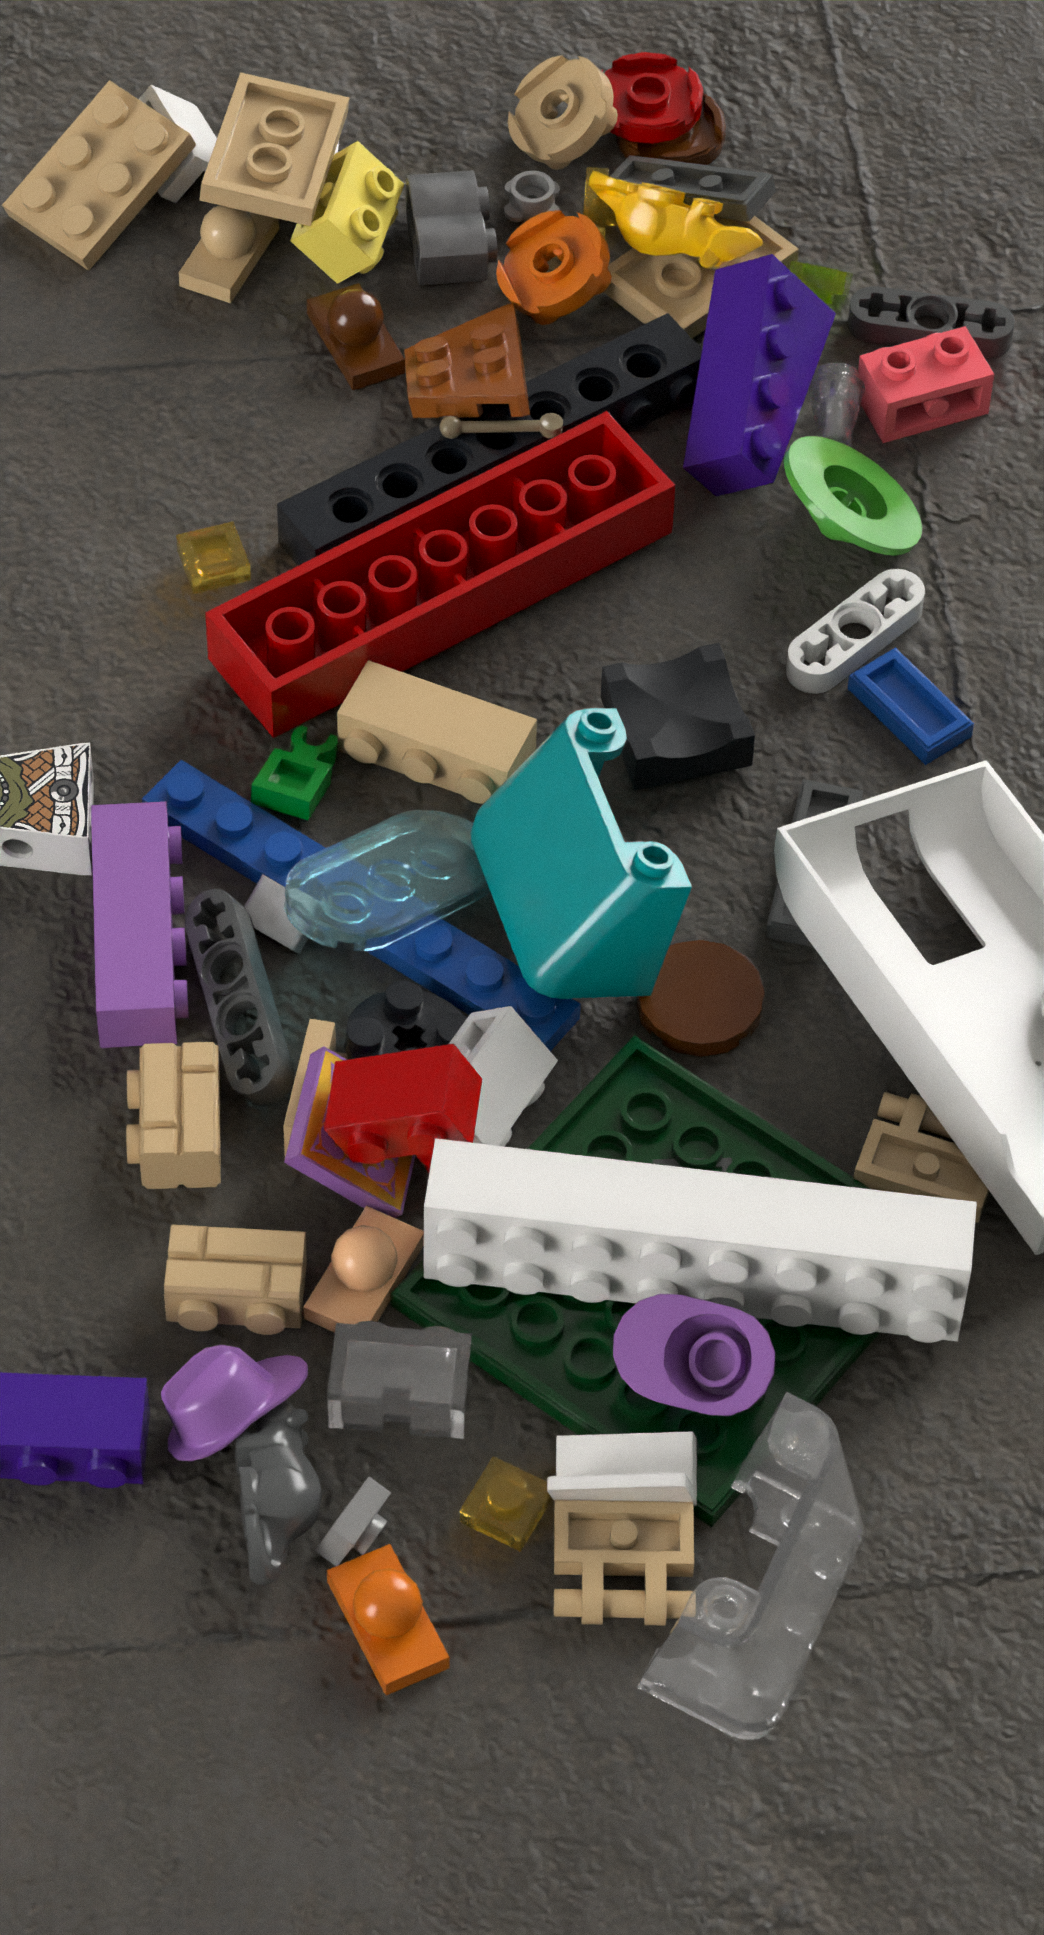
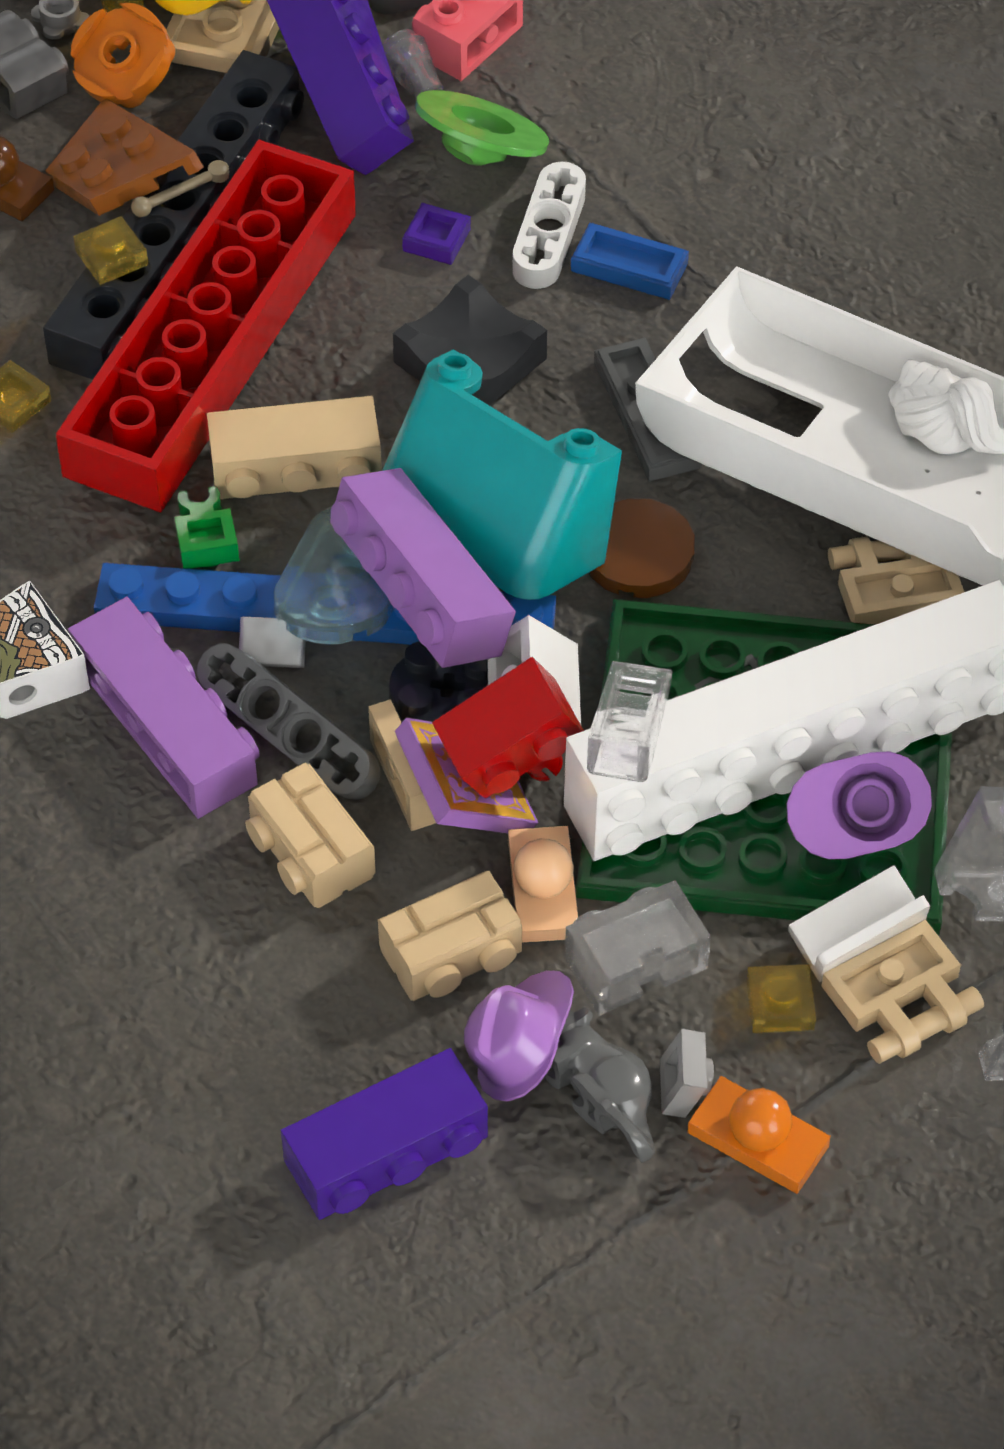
camera: 30 degrees left, 0 degrees up
(389, 457) = (110, 250): none -> clear yellow plate
(442, 908) = (422, 567): none -> medium lavender brick
(476, 1183) = (628, 724): none -> clear slope
(738, 587) = (436, 233): none -> dark purple tile

